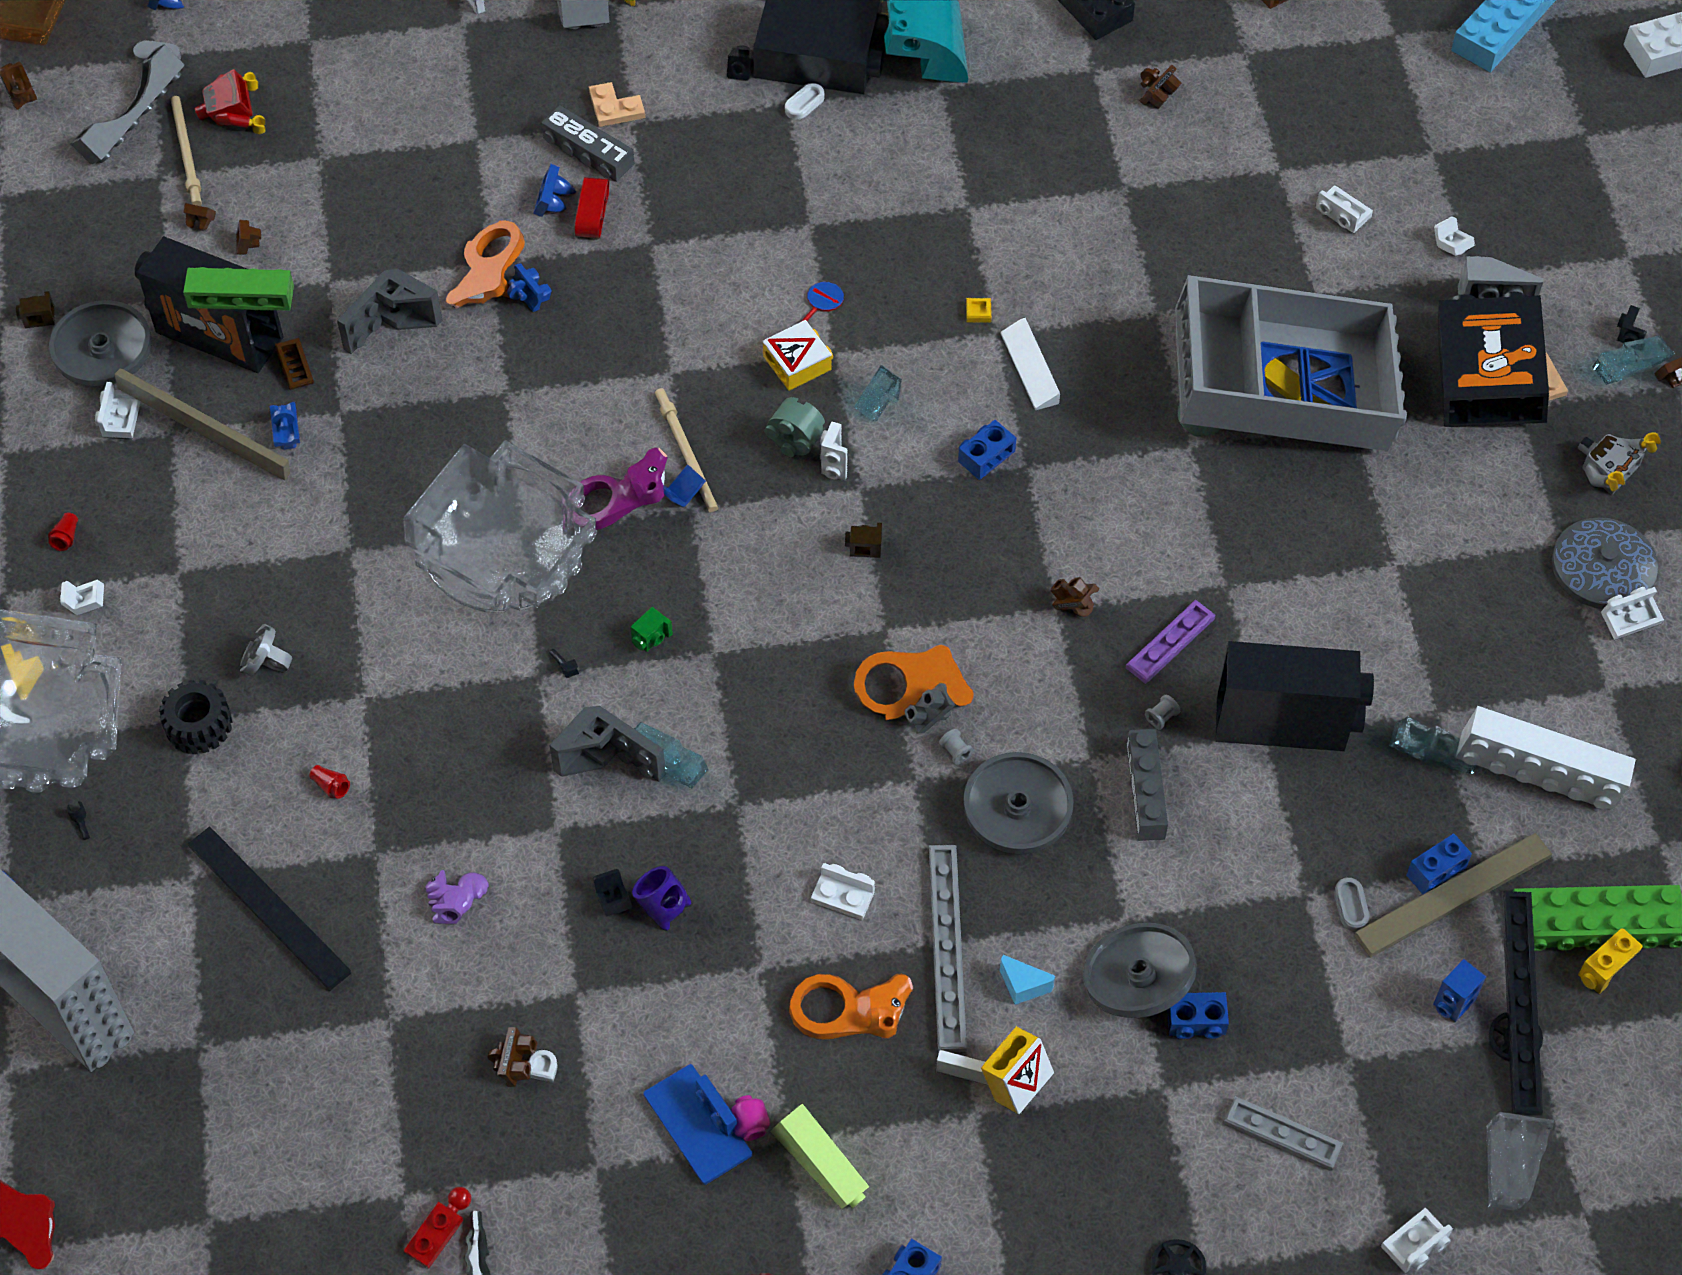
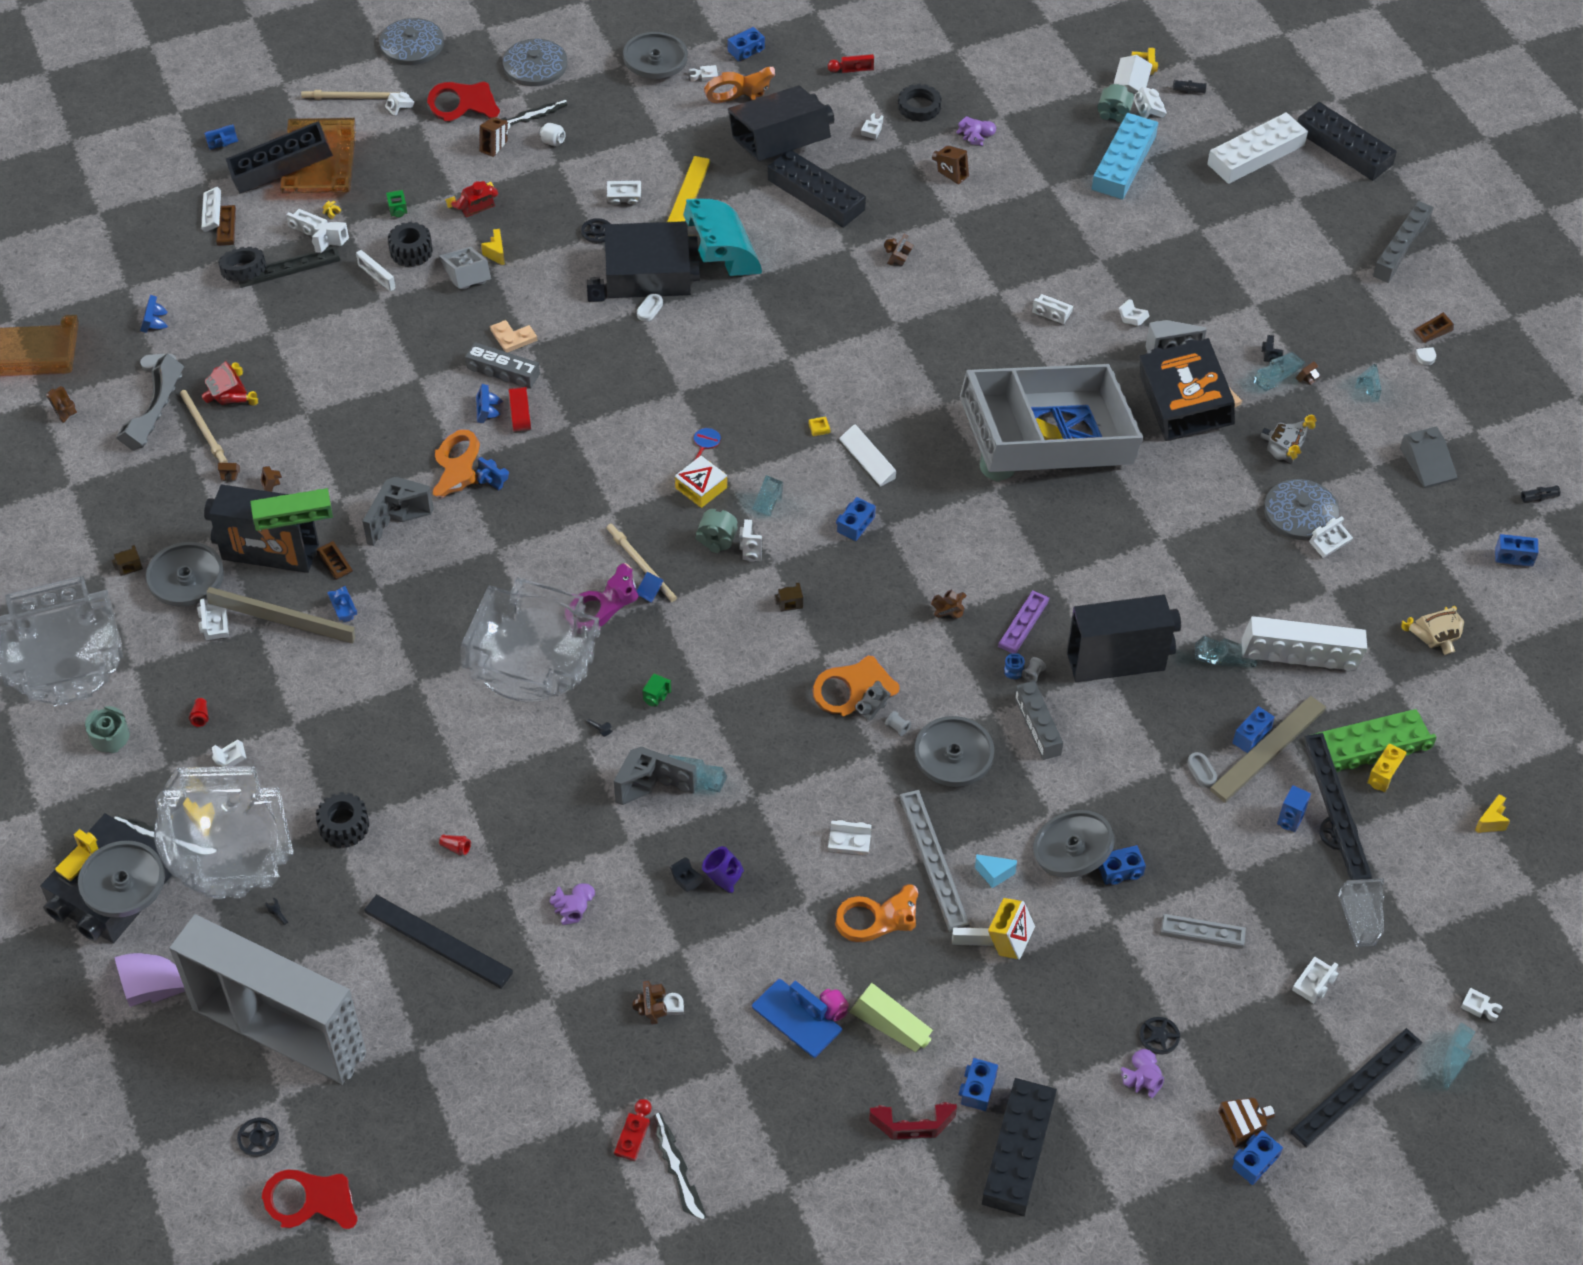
camera: 15 degrees left, 5 degrees down
(263, 652) = (379, 764): light grey tile -> none
(1135, 707) = (1014, 666): none -> blue wheel

